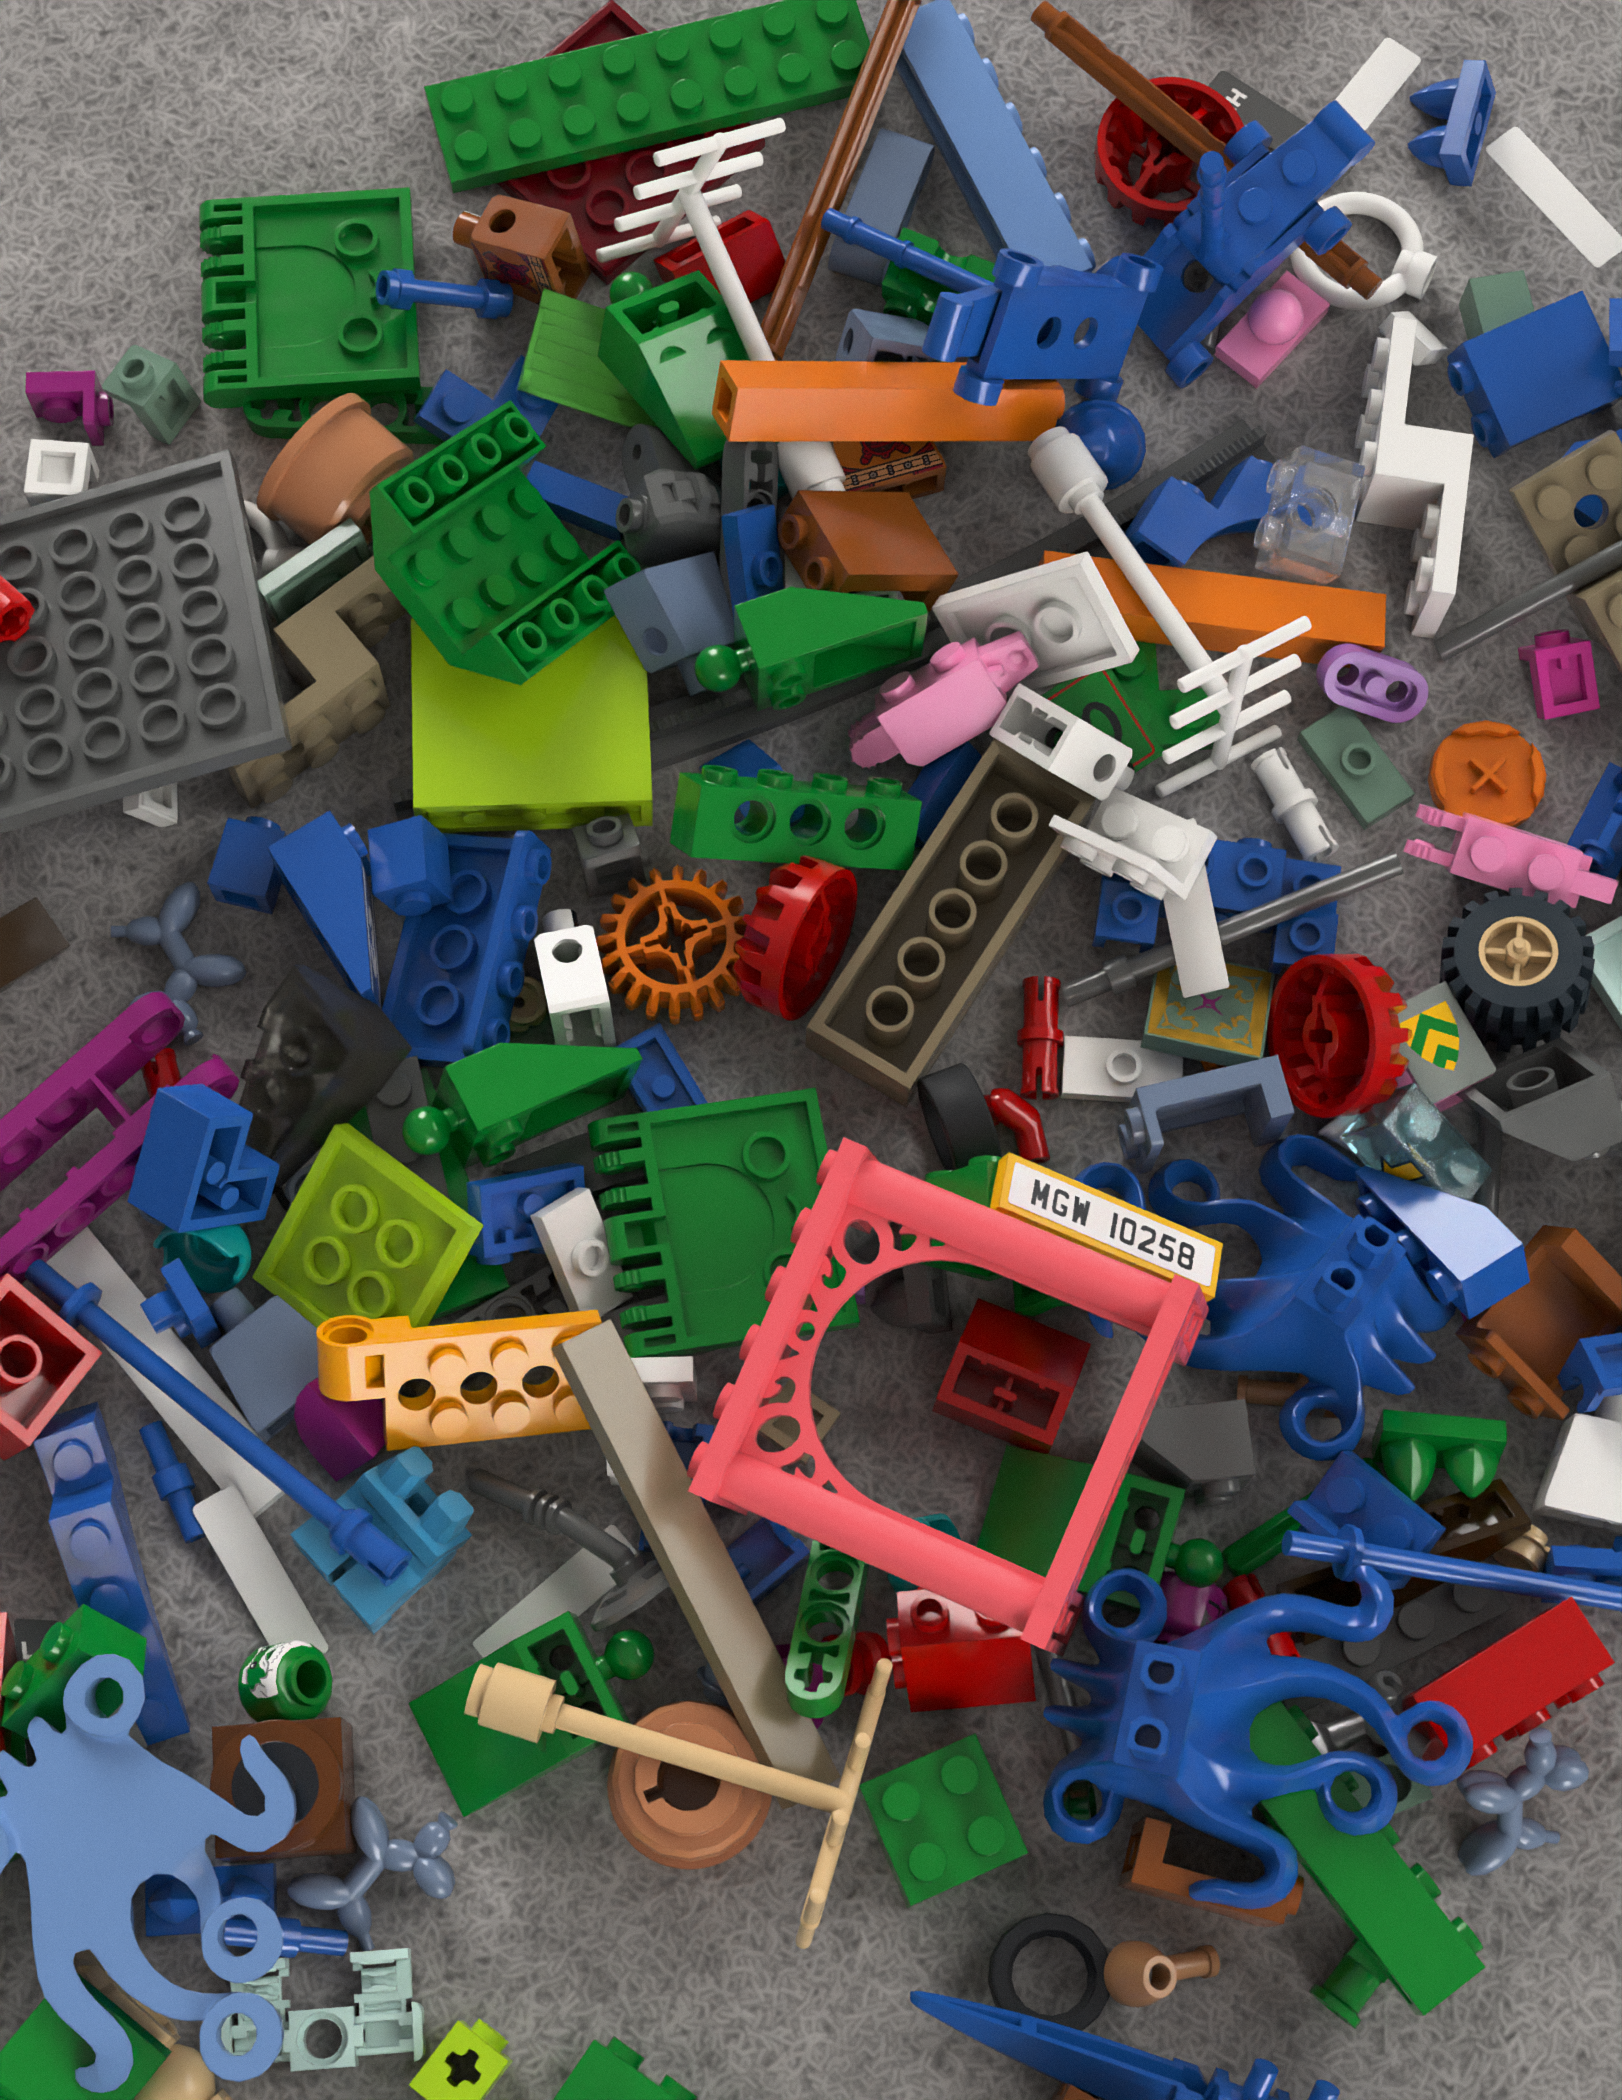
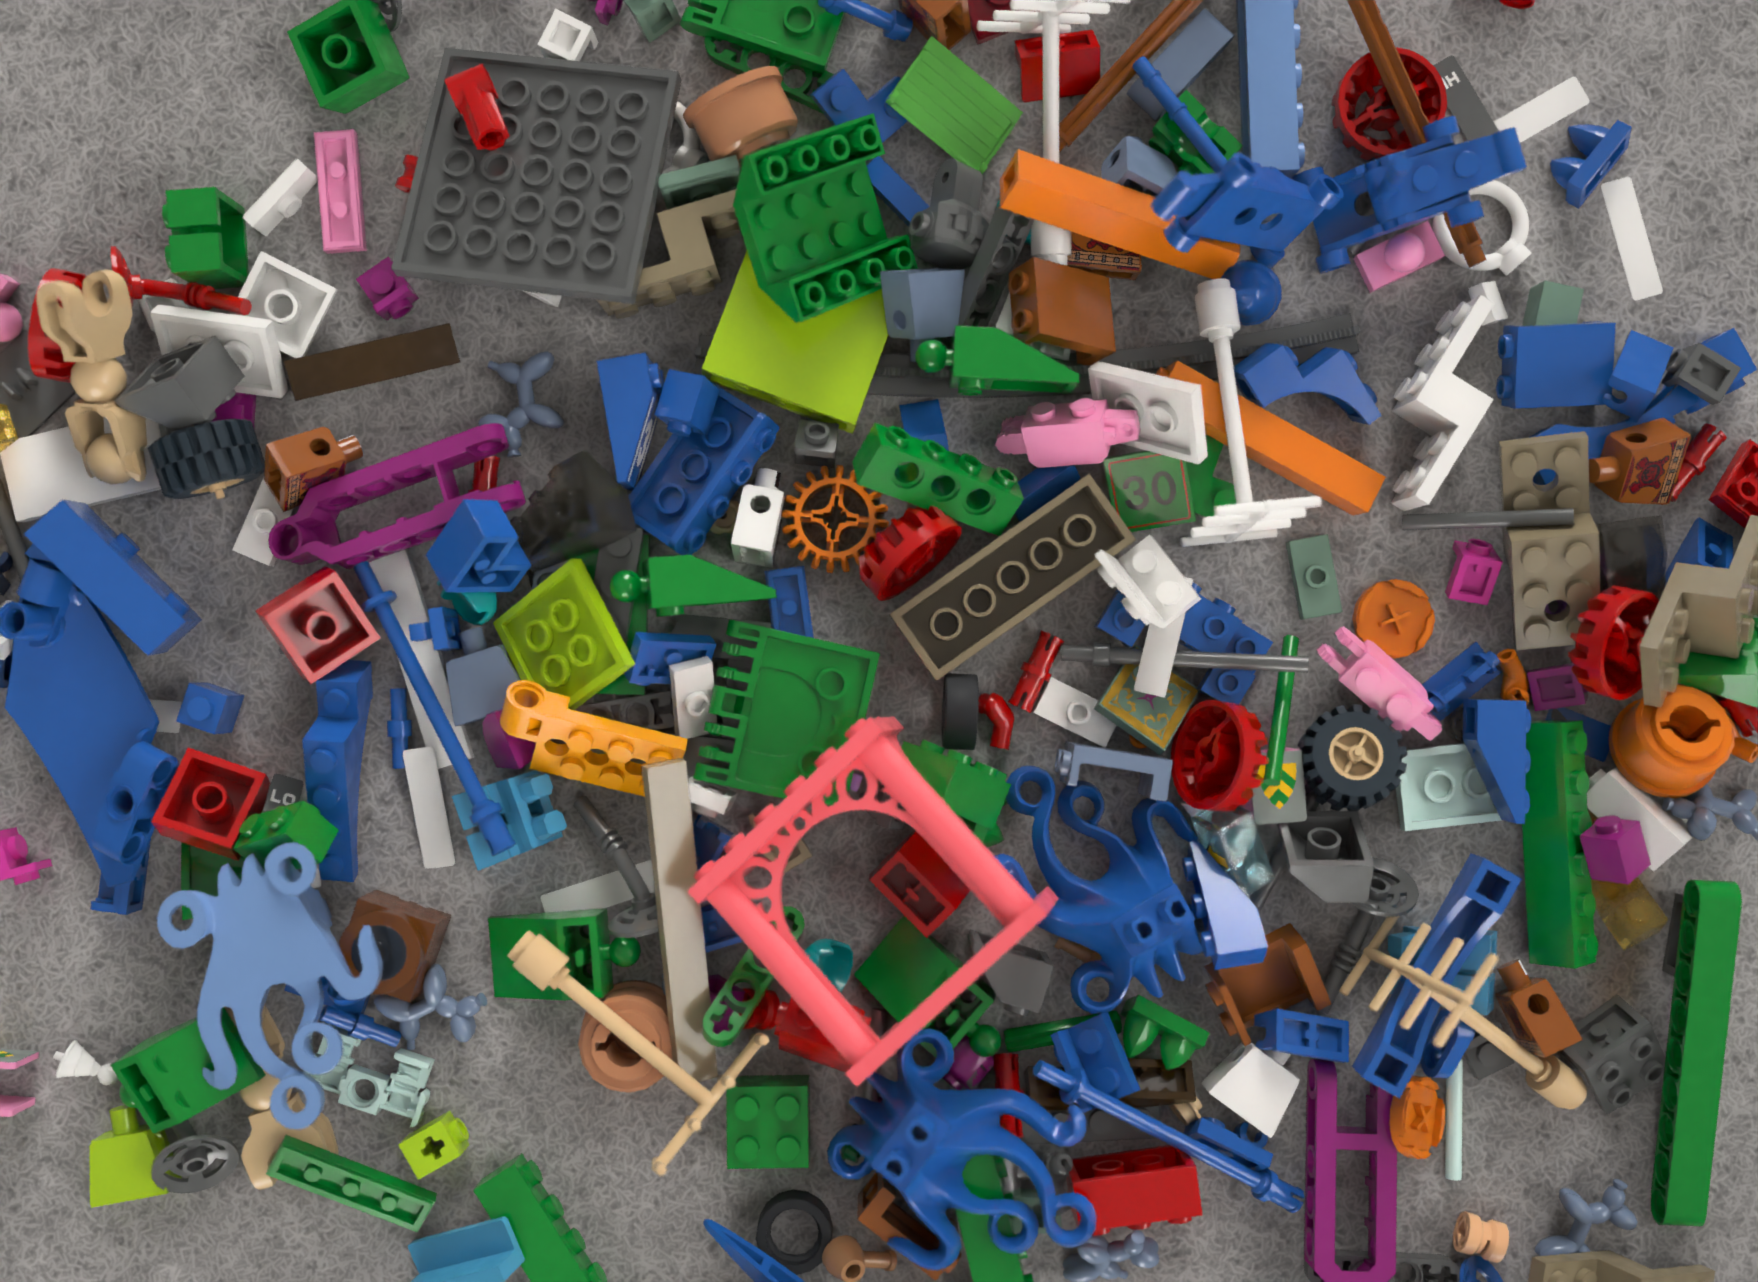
camera: 30 degrees right, 15 degrees up
(243, 866) = (585, 350): blue brick -> none
(285, 1682) = (417, 881): green head -> none
(668, 355) = (993, 118): green slope -> none
(752, 553) = (986, 290): blue plate -> none
(1082, 753) = (1139, 513): white torso -> none
(1104, 1223) = (1014, 828): tile -> none
(1294, 805) = (1262, 588): white pin -> none
(1330, 493) = (1380, 400): clear brick -> none
(1367, 682) = (1342, 524): medium lavender plate -> none
(1397, 954) = (1280, 716): none -> green bar

